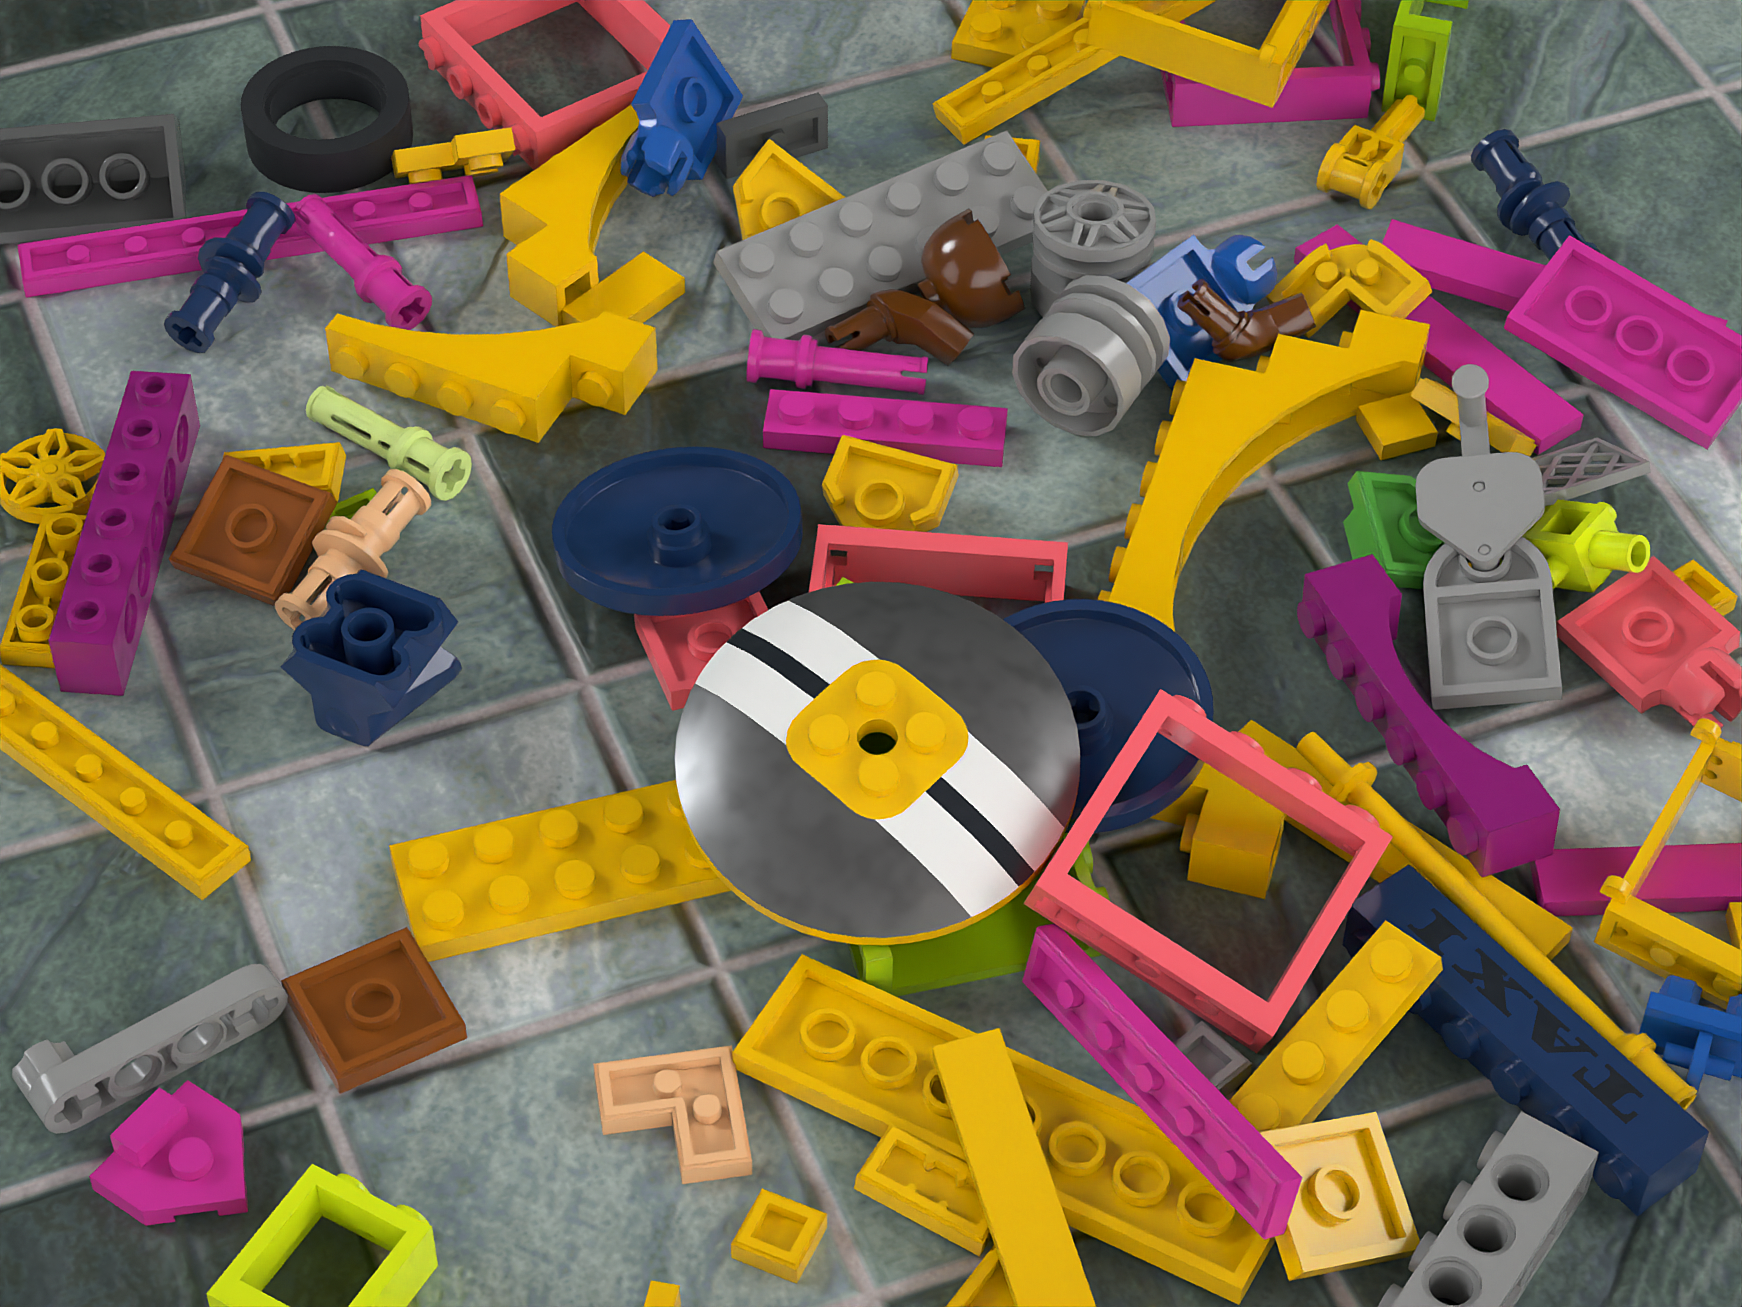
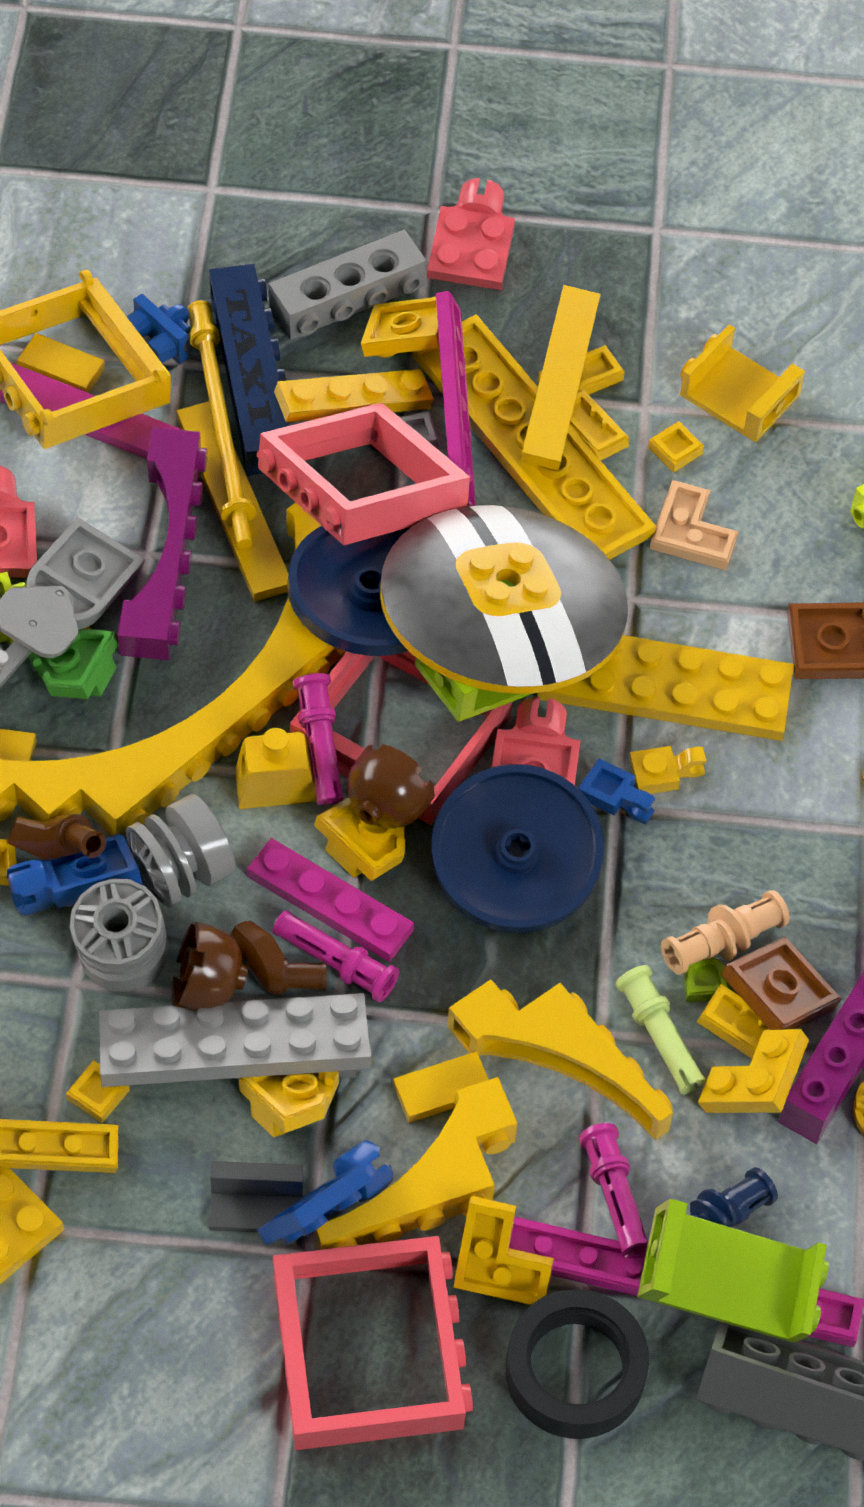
camera: 155 degrees left, 10 degrees up
(184, 206) = (732, 1275): none -> lime panel
(232, 398) = (763, 1083): none -> yellow plate
(372, 655) = (746, 836): dark blue piece -> none
(542, 736) = (660, 770): none -> yellow plate
(596, 674) = (613, 788): none -> blue plate
(879, 484) = (388, 787): none -> reddish brown cylinder
(1028, 530) = (317, 720): none -> dark pink pin
(1047, 491) = (274, 770): none -> yellow torso

